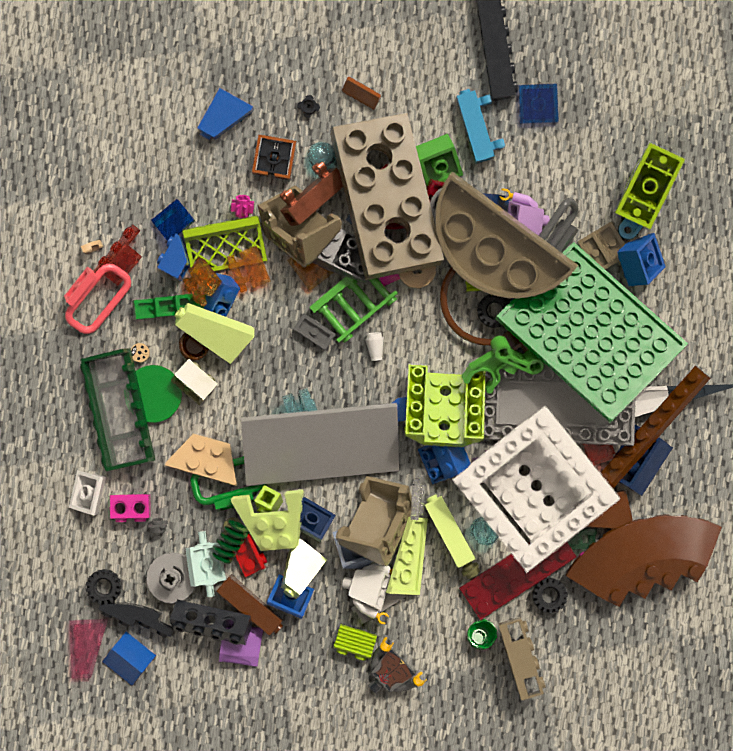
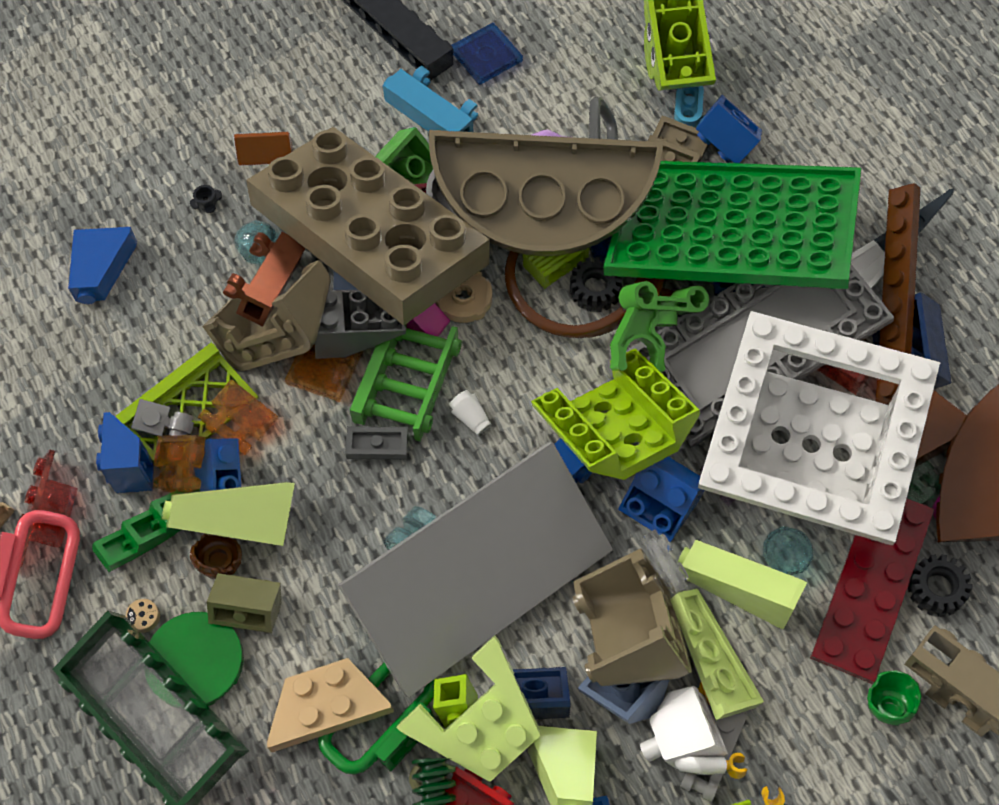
camera: 30 degrees left, 25 degrees down
(173, 220) = (90, 416): clear blue piece -> none
(202, 245) = (152, 419): none -> light grey plate
(242, 206) = (183, 347): dark pink gear -> none
(274, 149) = (193, 270): piece -> none
(470, 570) = (808, 619): olive plate -> none

